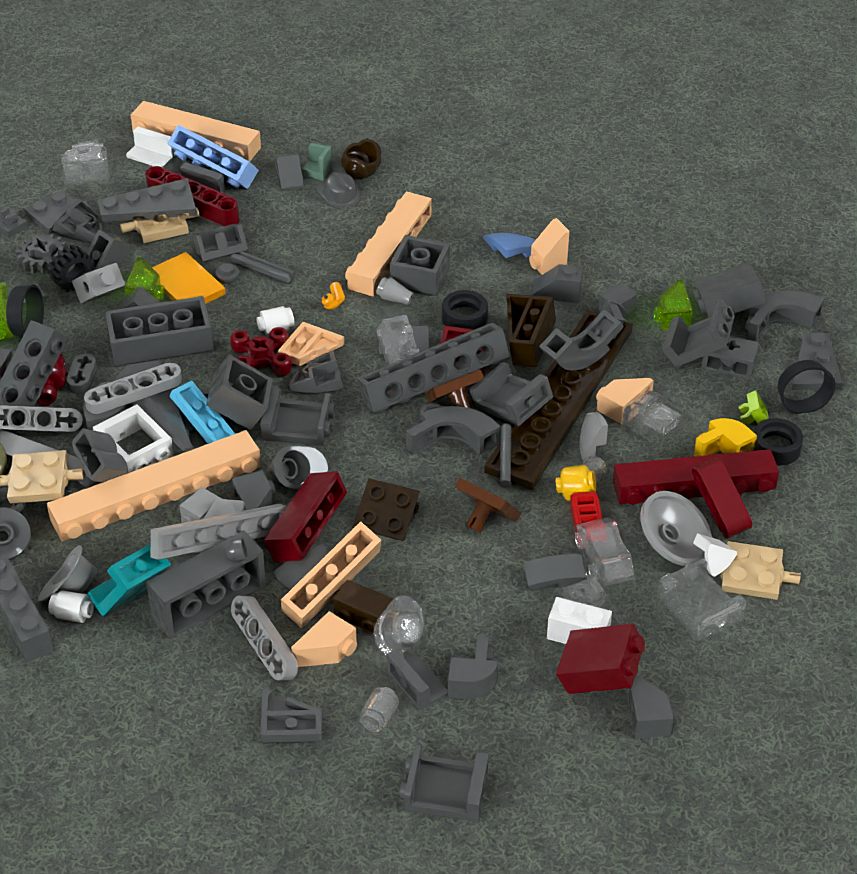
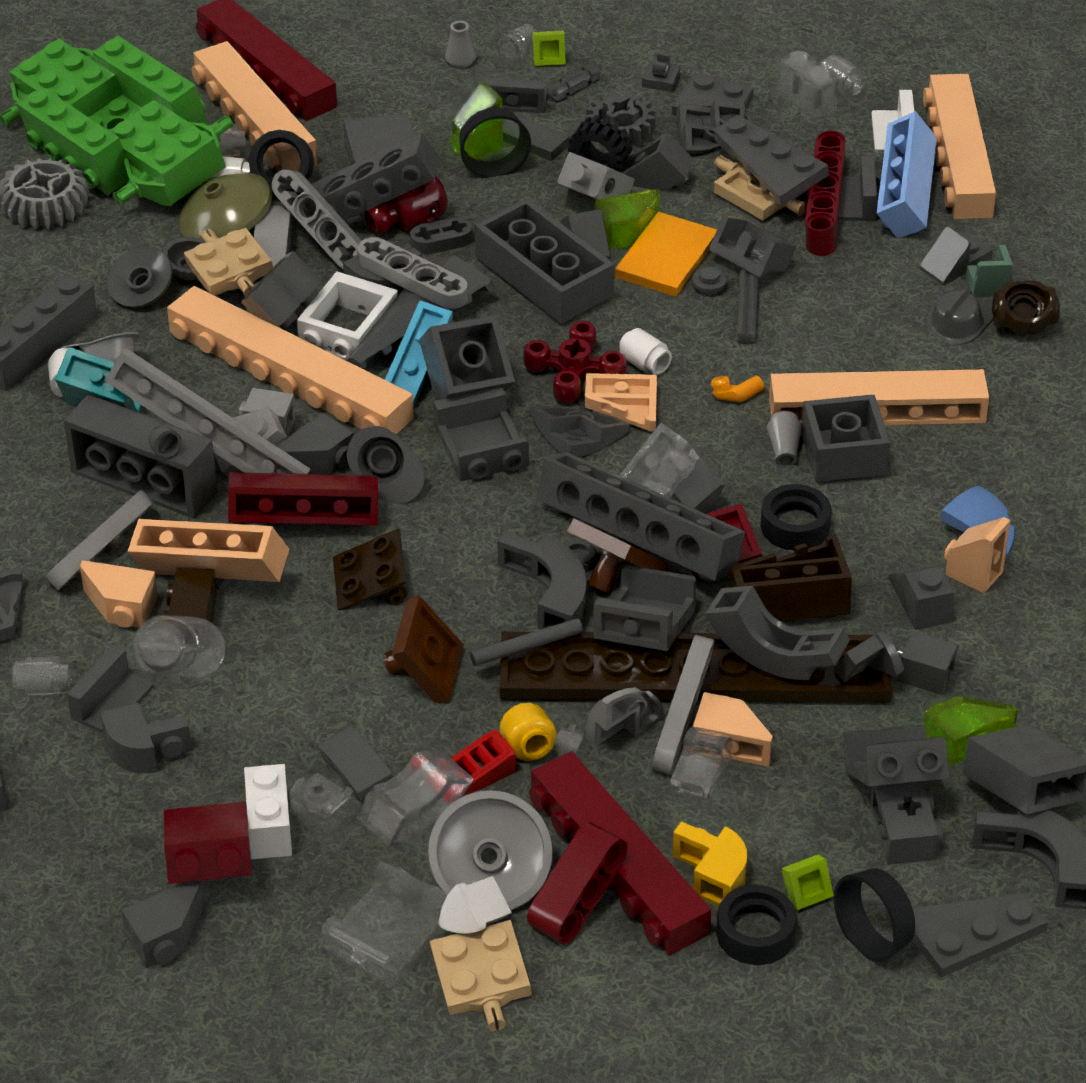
camera: 65 degrees right, 0 degrees up
(572, 382) = (683, 705): none -> light grey beam

